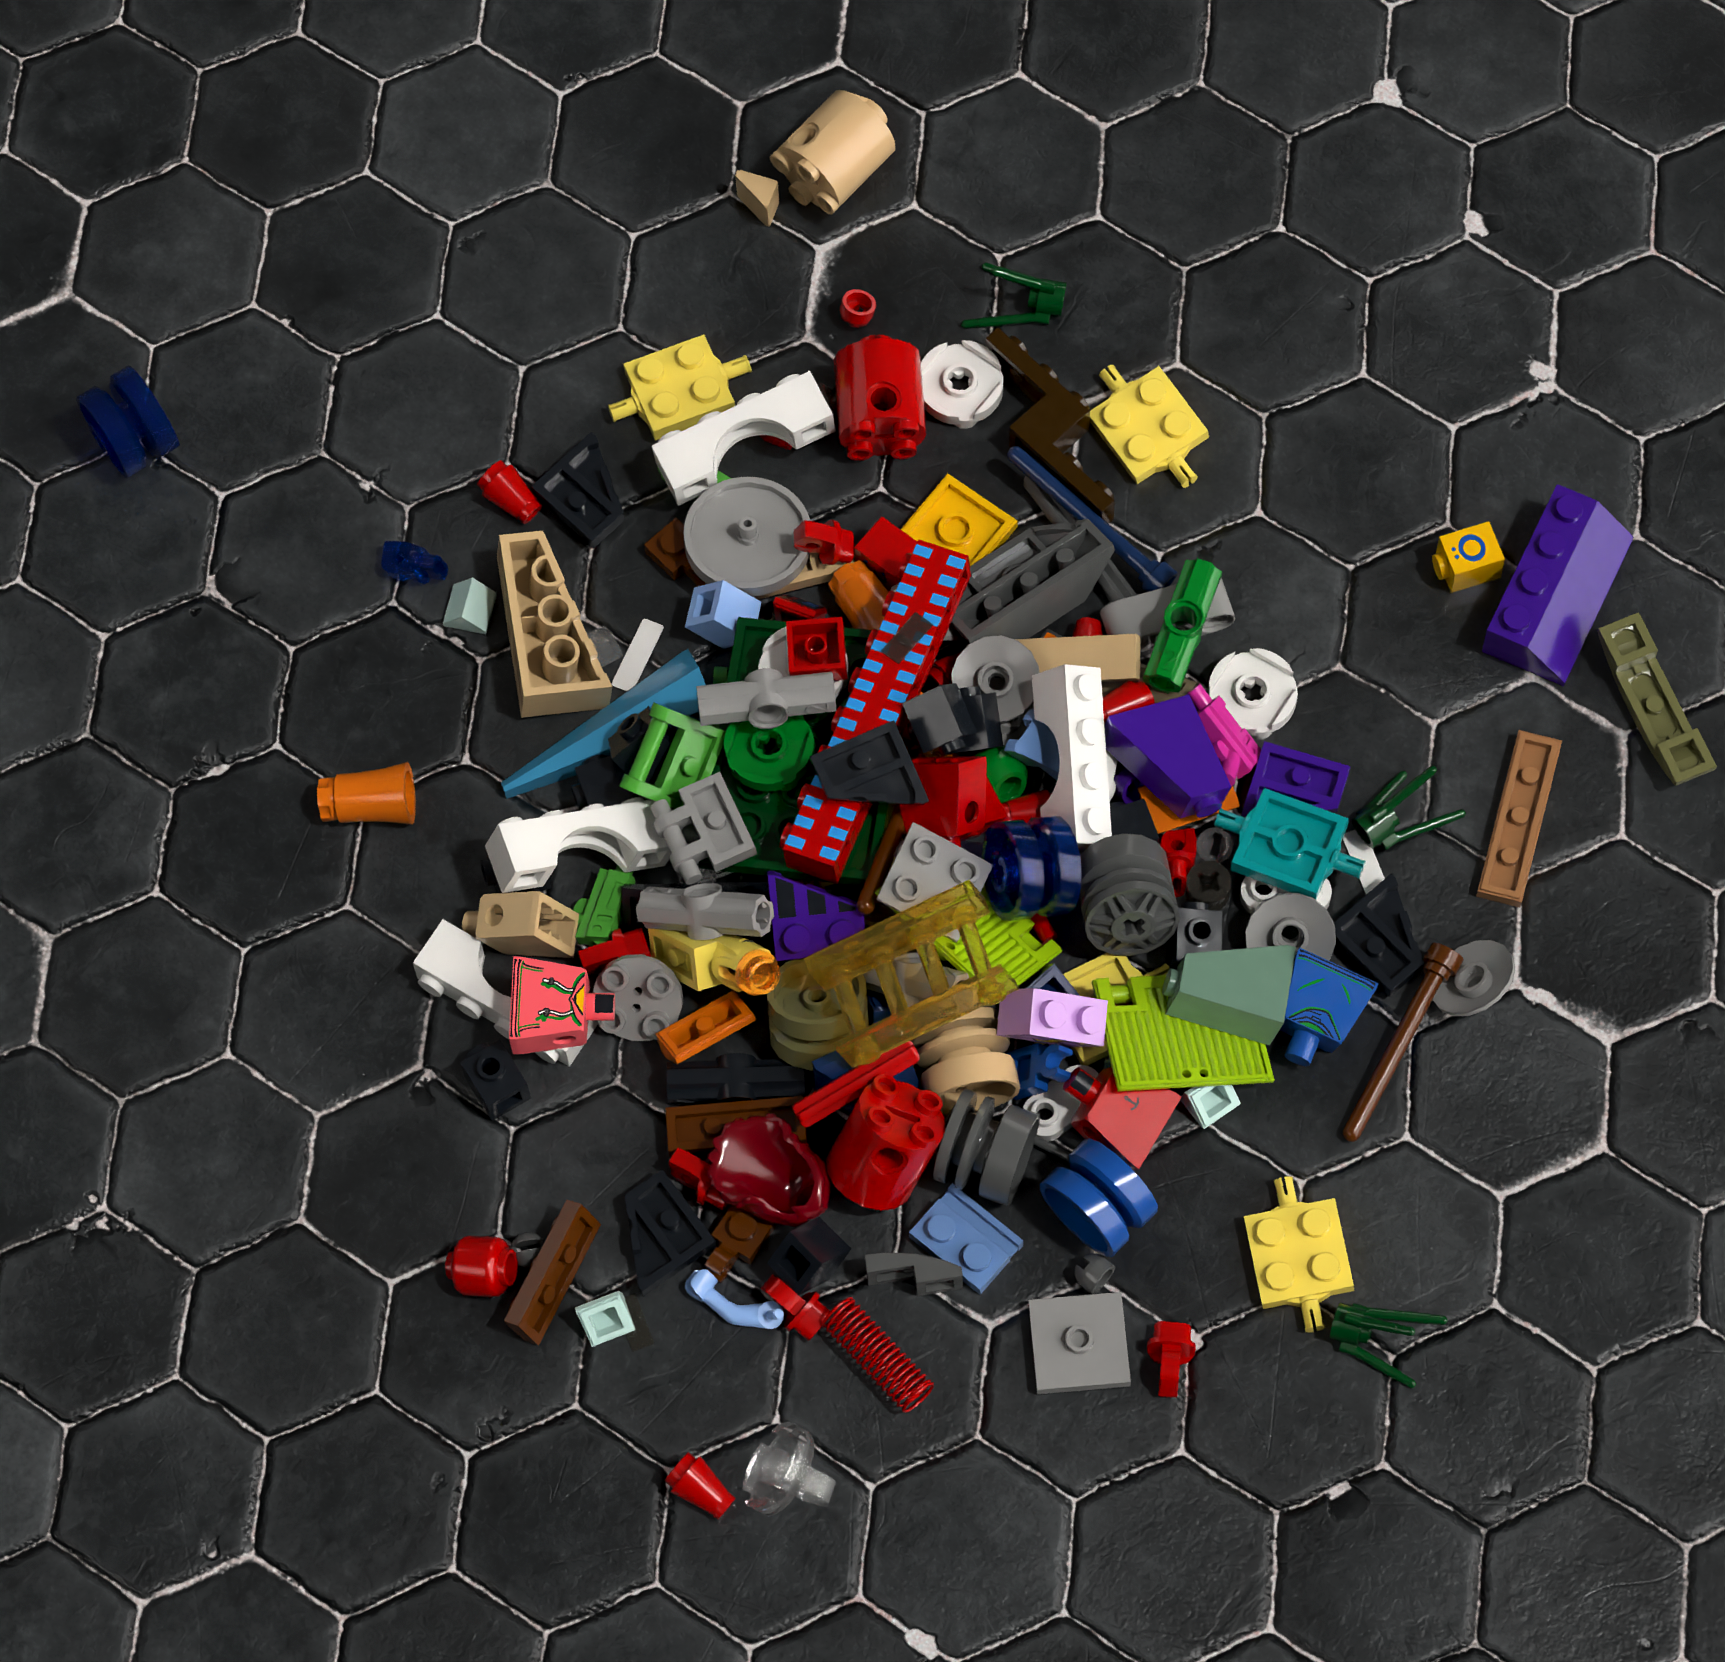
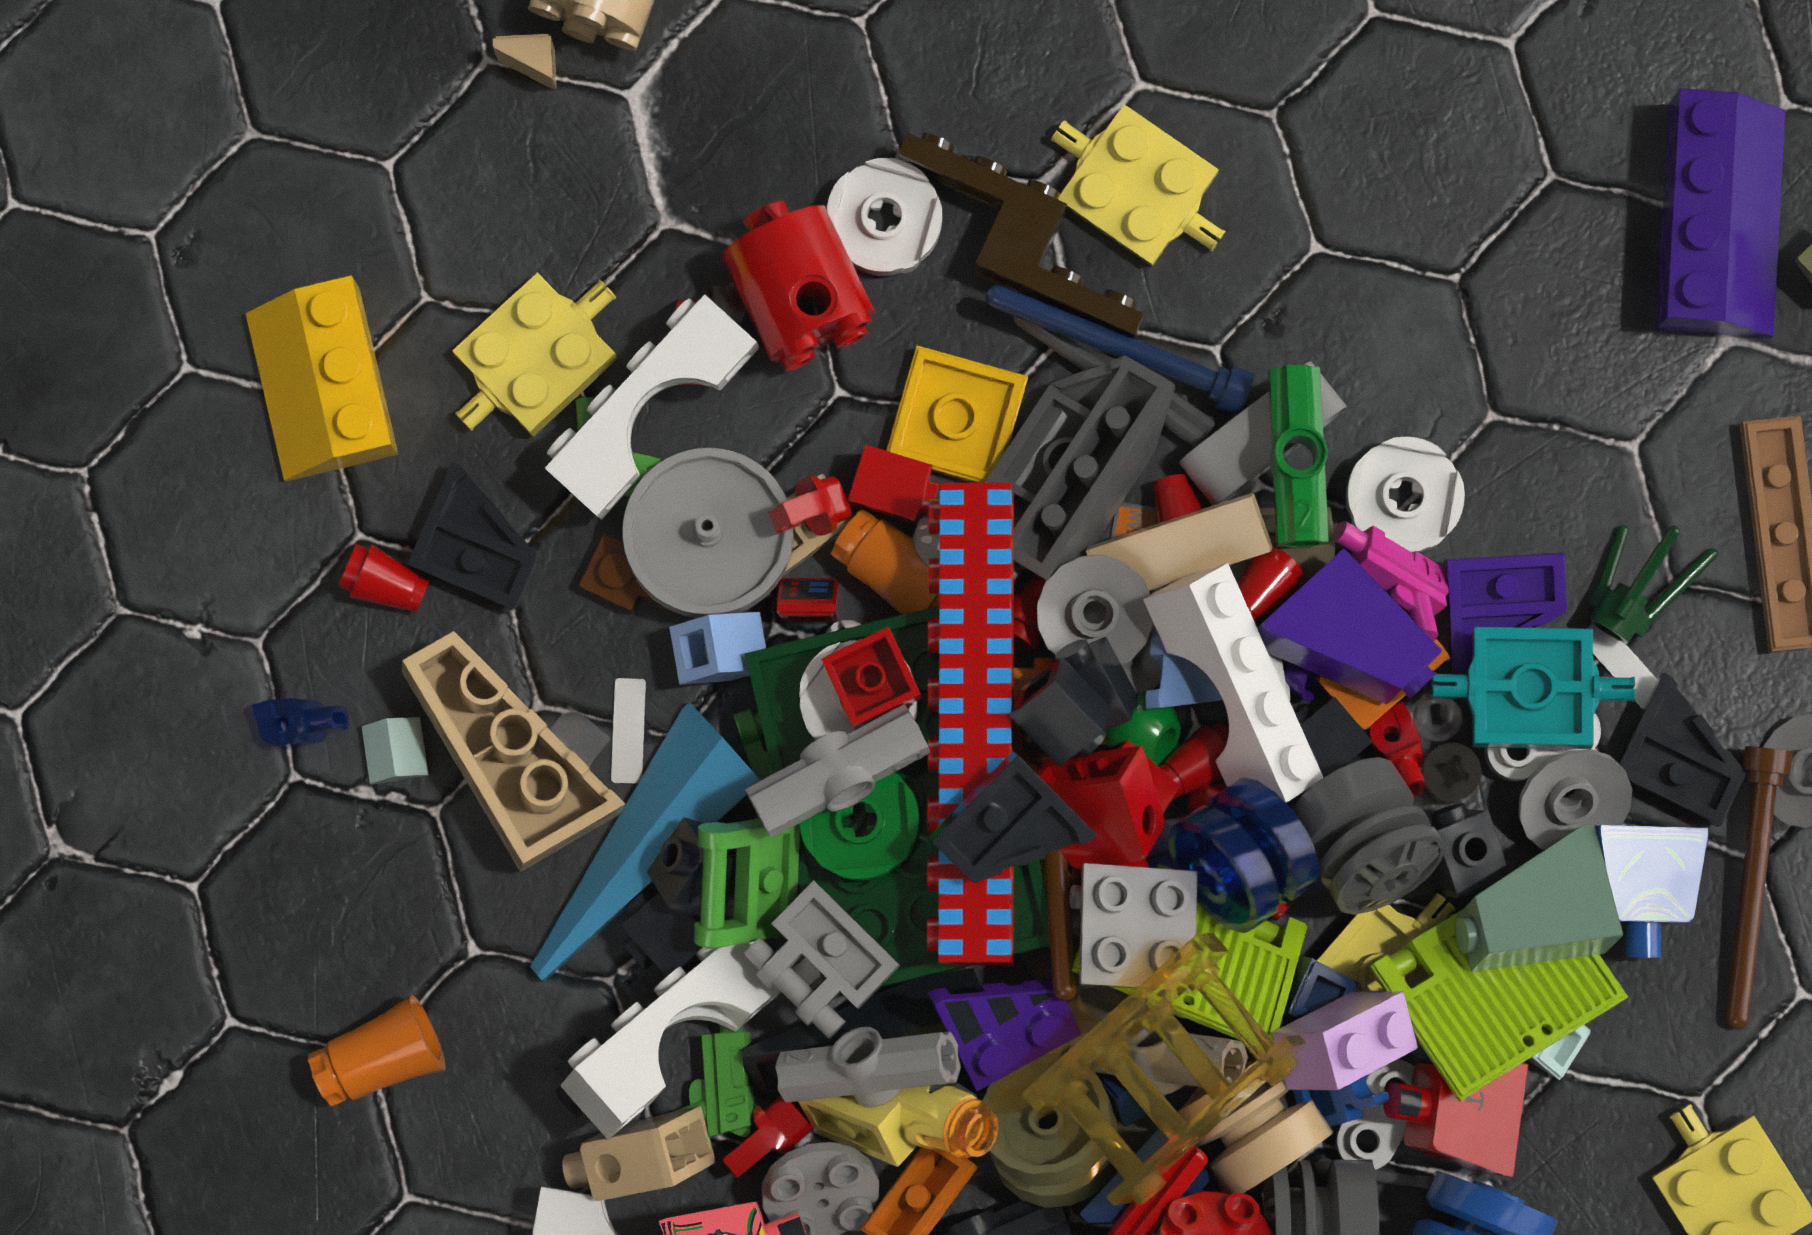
camera: 25 degrees left, 15 degrees up
(526, 350) = (321, 379): none -> yellow slope
(850, 305) = (704, 159): red hinge -> none
(907, 637) = (979, 622): clear smoke piece -> none
(1044, 295) = (941, 57): dark green plant -> none
(1468, 557) = (1599, 218): yellow brick -> none

